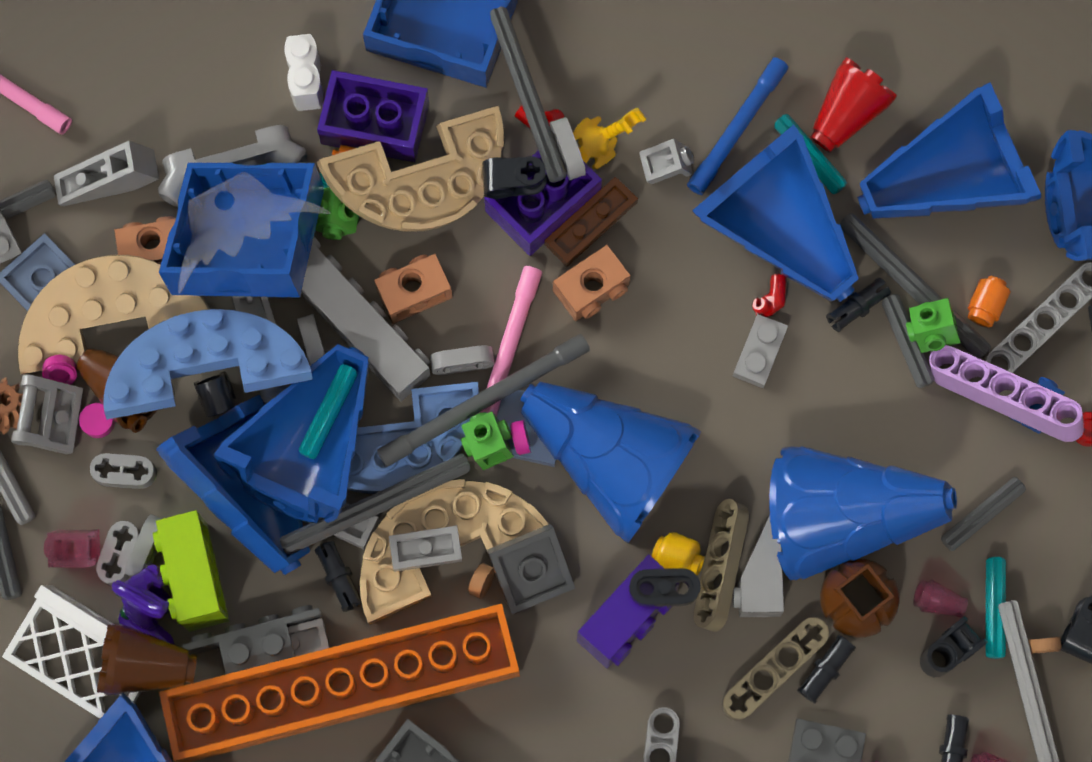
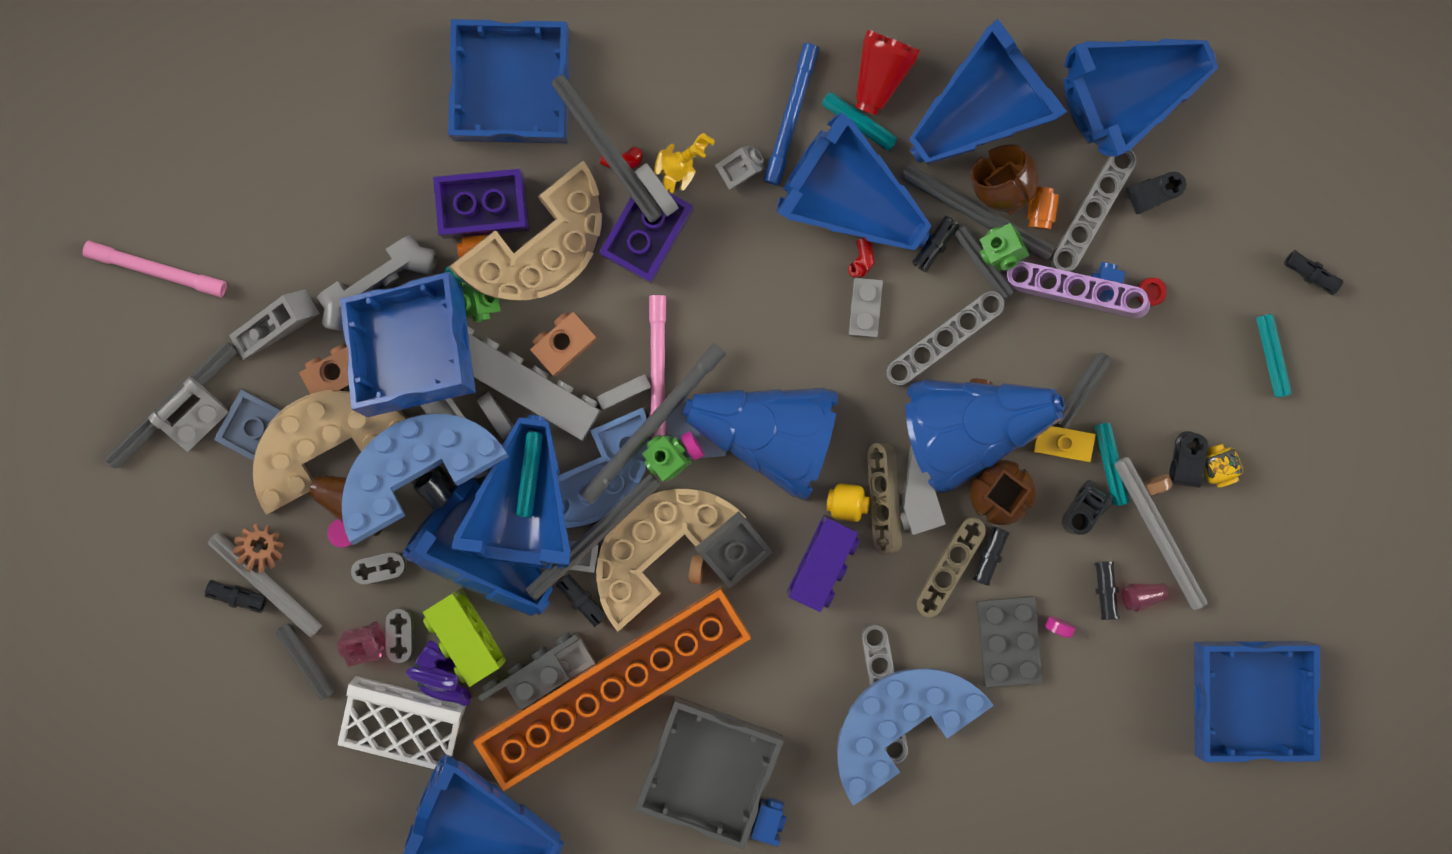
camera: 15 degrees left, 15 degrees up
(58, 415) = (310, 543): light grey plate -> none
(60, 369) = (297, 503): dark pink tile -> none
(142, 662) = (451, 726): reddish brown cone -> none
(144, 548) = (419, 633): light grey beam -> none
(226, 229) = (393, 350): clear piece -> none
(304, 72) = (409, 187): white brick -> none
(425, 548) = (644, 561): light grey plate -> none
(510, 177) = (612, 230): black piece -> none
(591, 221) = (693, 238): reddish brown plate -> none
(600, 267) = (713, 277): nougat brick -> none
(663, 586) = (847, 544): black plate -> none
(851, 398) = (958, 333): none -> light grey beam
(937, 599) = (1063, 472): clear pink cone -> none
(946, 567) = (1065, 443): none -> yellow plate
(955, 254) = (1005, 178): none -> reddish brown piece

